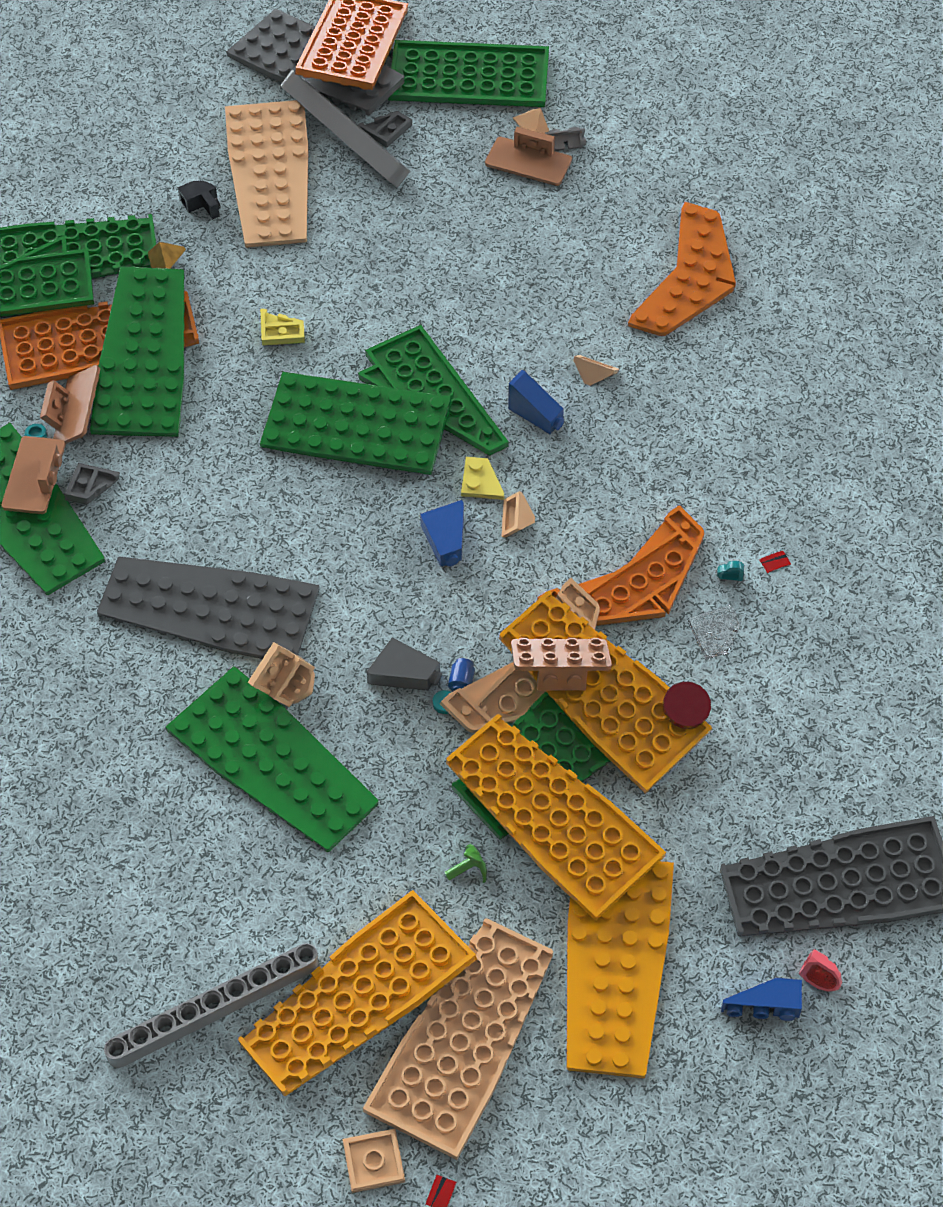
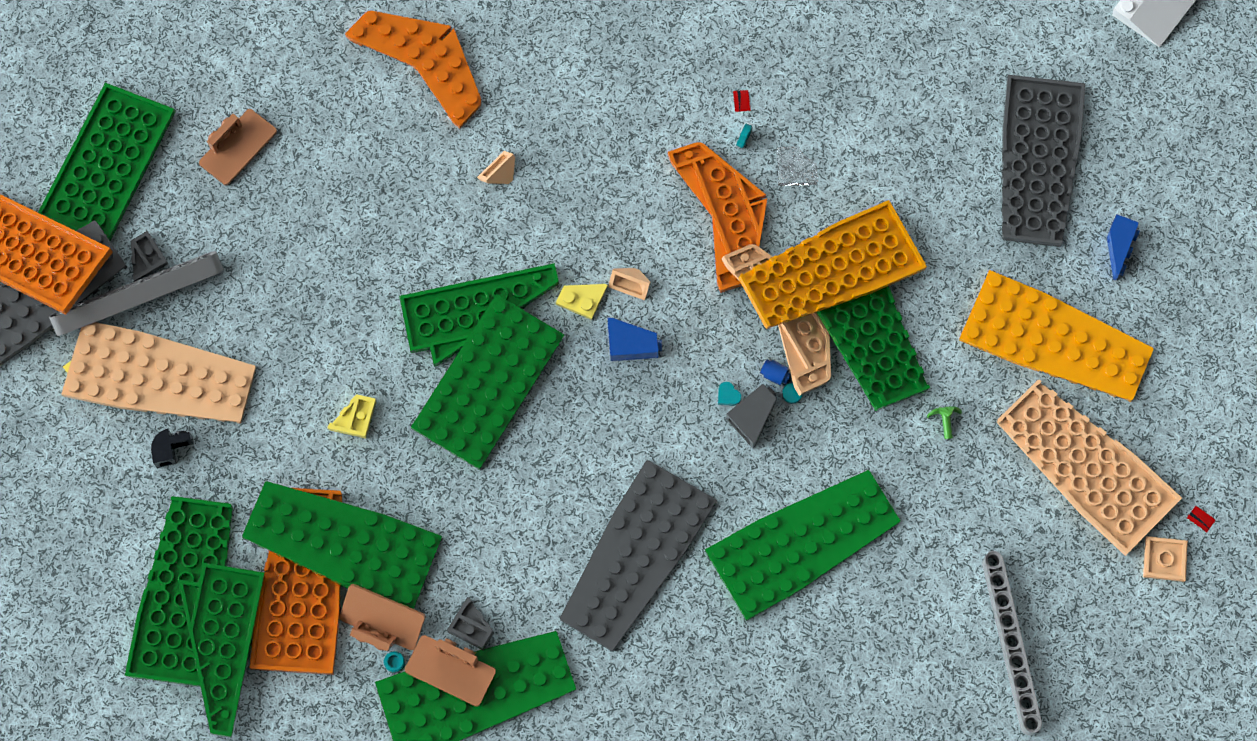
camera: 70 degrees left, 15 degrees up
(165, 255) = (239, 496): pearl gold slope -> none
(284, 676) = (730, 512): light nougat piece -> none
(358, 993) = (1032, 531): light orange wing -> none
(421, 639) = (728, 395): none -> teal tile
(532, 120) = (193, 128): light nougat slope -> none
(534, 403) = (526, 228): blue slope -> none
(555, 817) = (931, 340): light orange wing -> none
(561, 662) = (808, 286): nougat bracket -> none
(572, 136) = (226, 100): light grey hinge -> none
(687, 705) = (868, 210): dark red tile -> none
(821, 972) = (1108, 200): rock -> none

